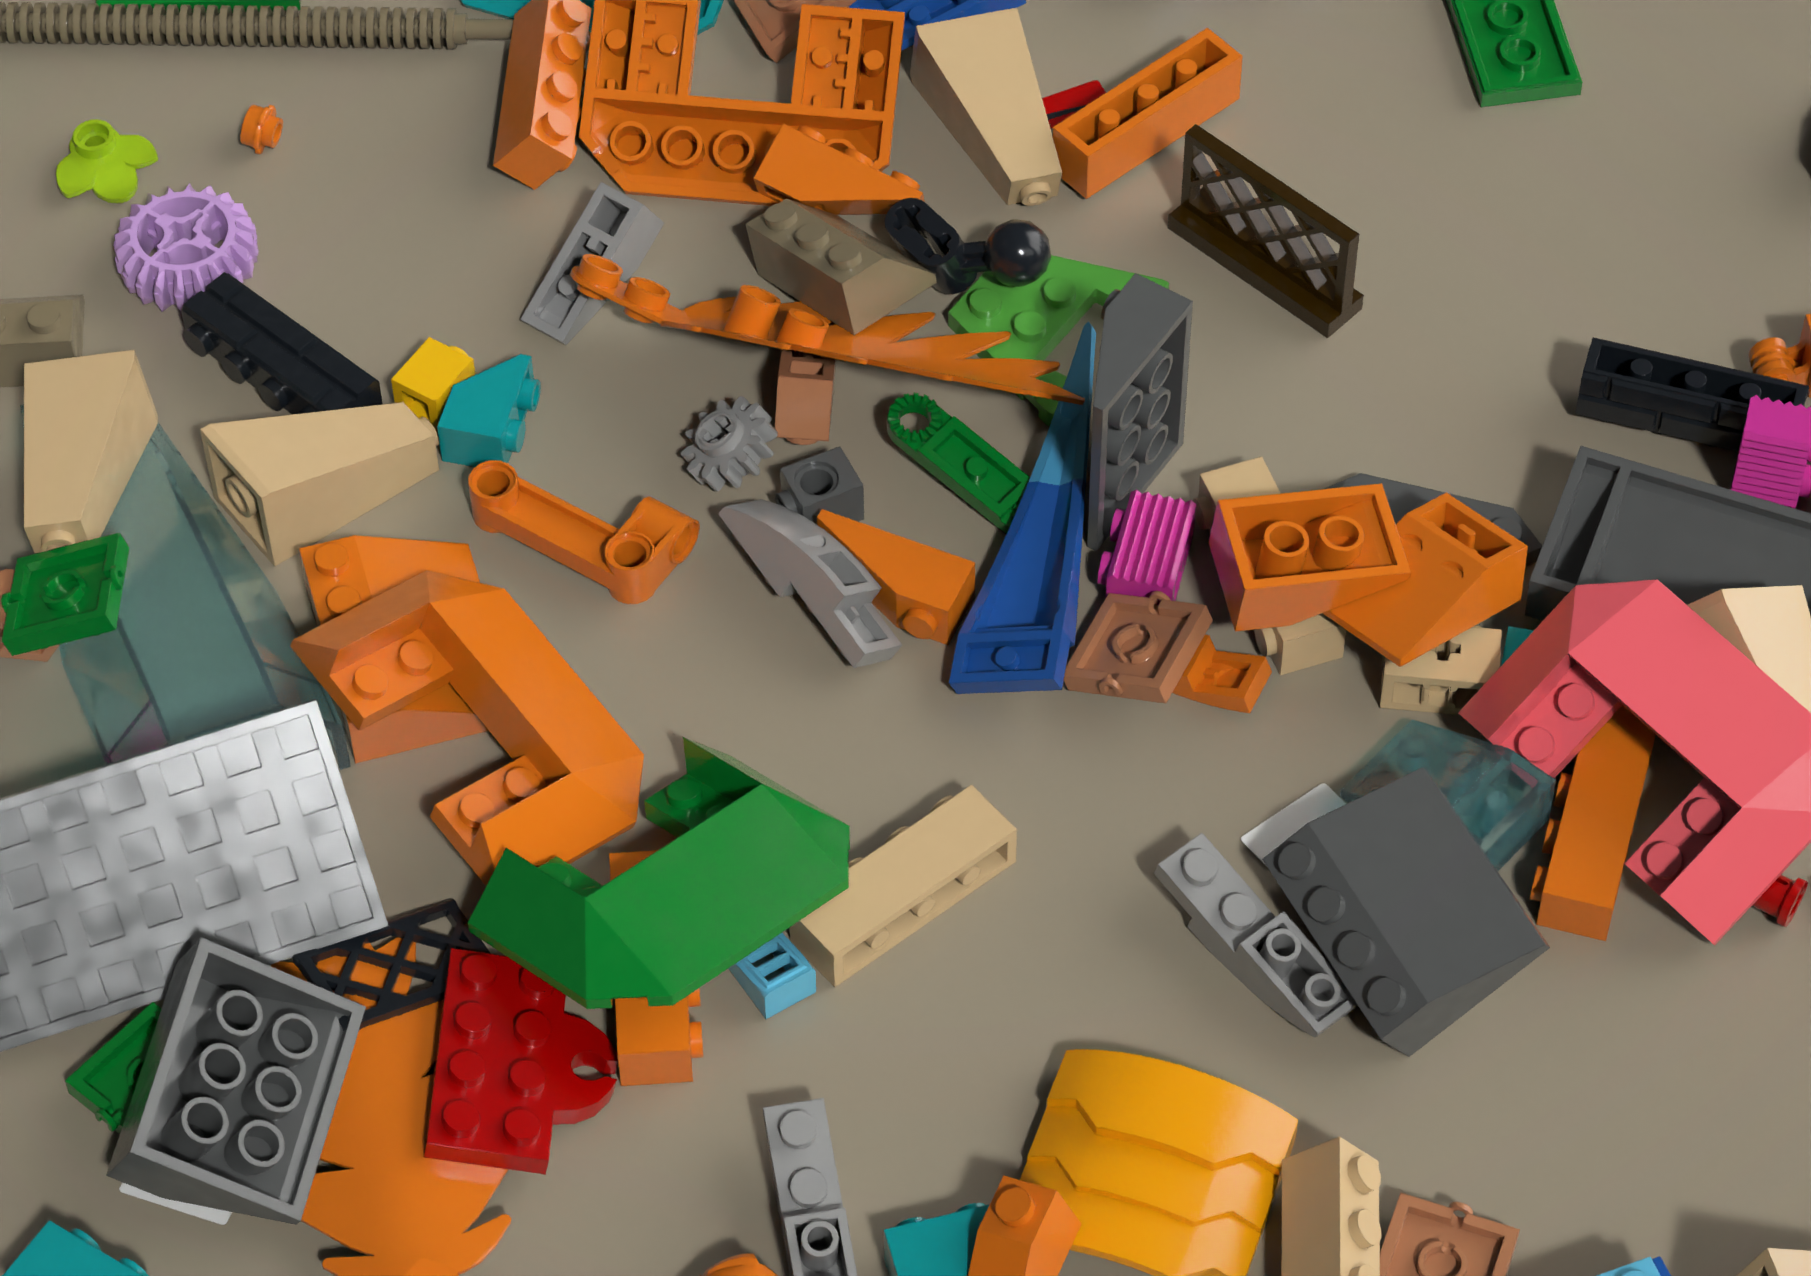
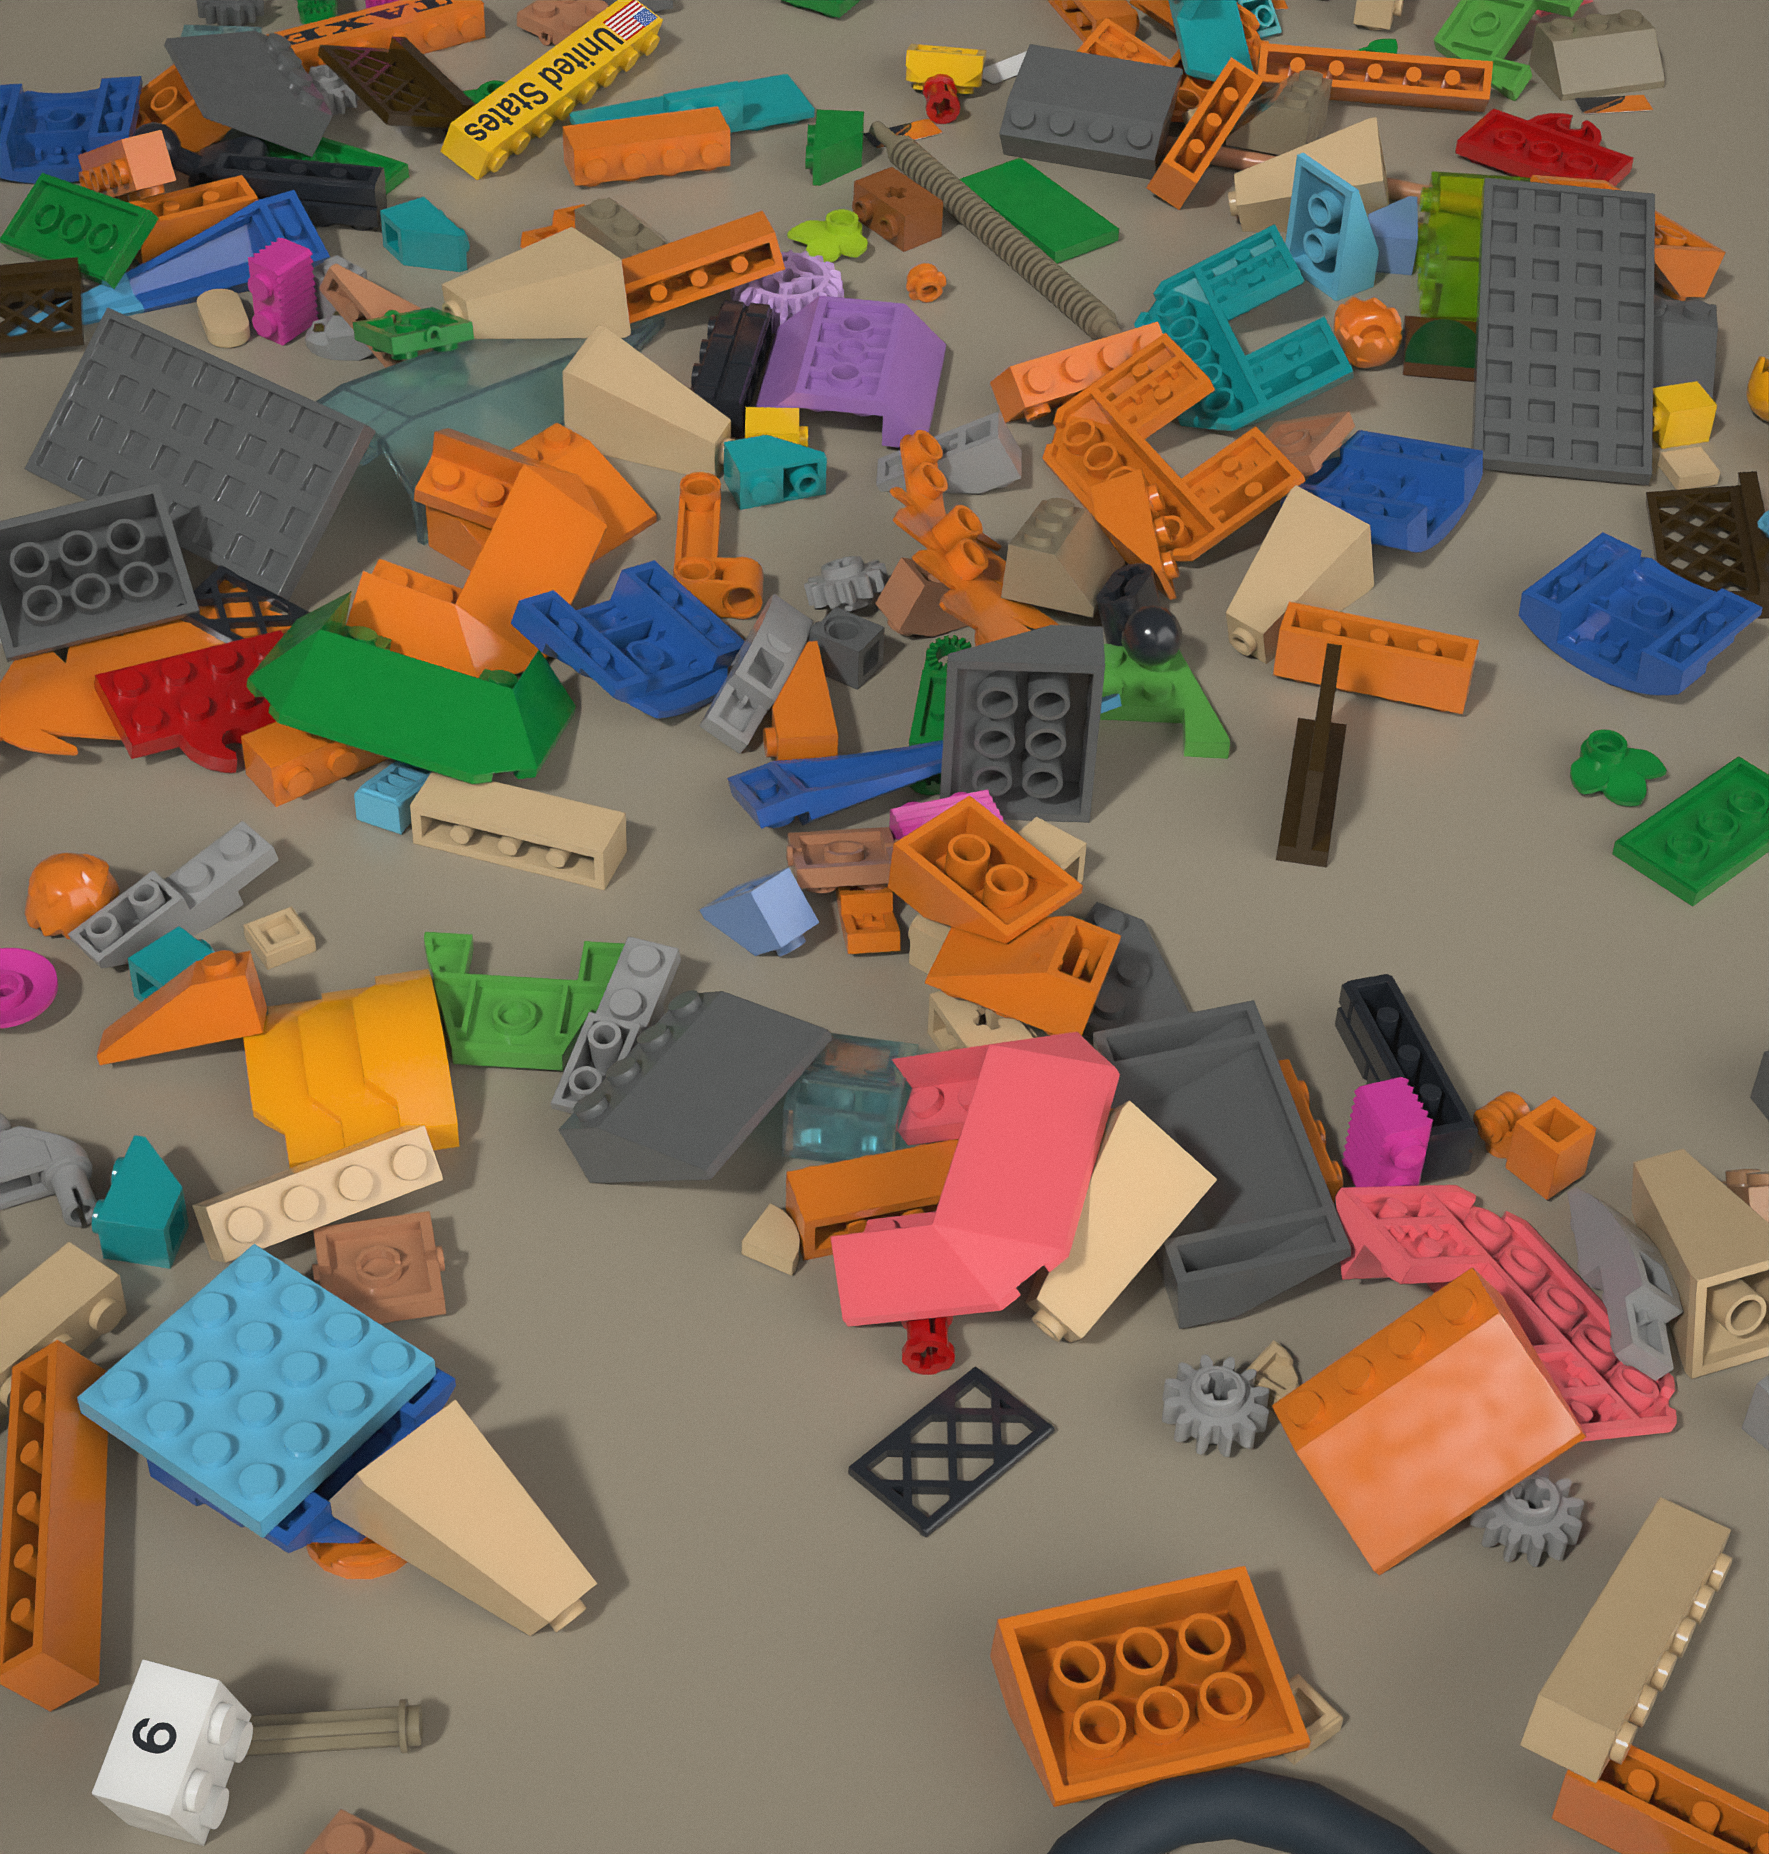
camera: 55 degrees right, 10 degrees down
(112, 81) = (898, 209): none -> dark orange brick
(136, 278) = (700, 265): none -> orange brick
(355, 280) = (857, 361): none -> medium lavender slope
(695, 651) = (642, 646): none -> blue slope
(910, 1159) = (279, 938): none -> tan tile
(1161, 750) = (763, 914): none -> medium blue slope
(1175, 1006) = (514, 1017): none -> bright green wing
(1388, 40) = (1614, 768): none -> green plate
(1581, 948) = (773, 1241): none -> tan tile

